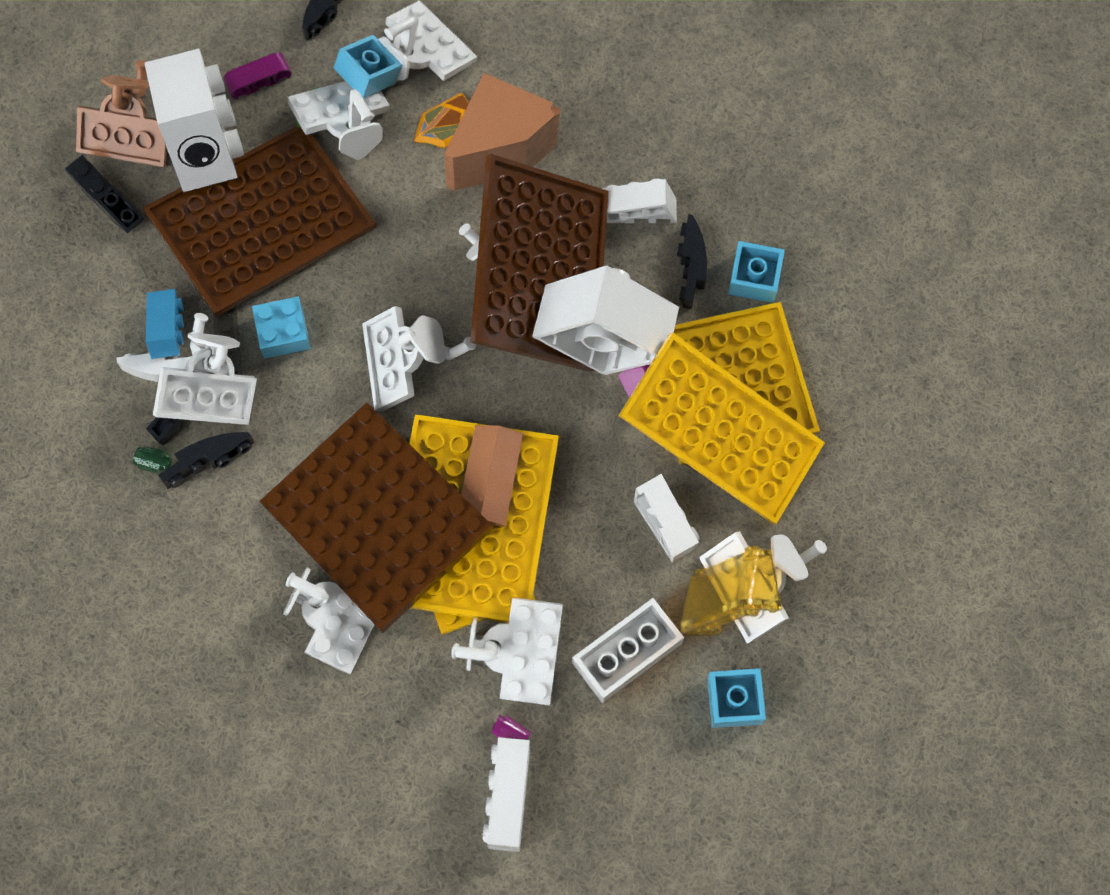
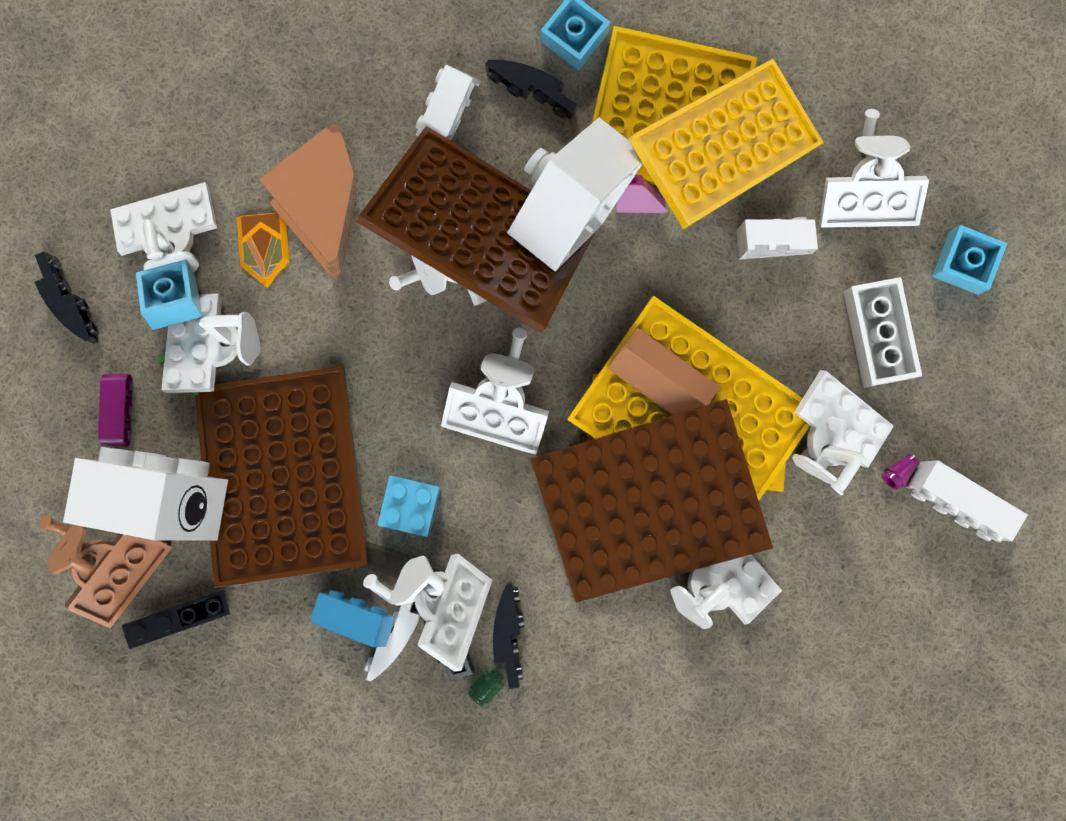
camera: 65 degrees left, 15 degrees up
(730, 592) = (891, 215): clear yellow windscreen -> none

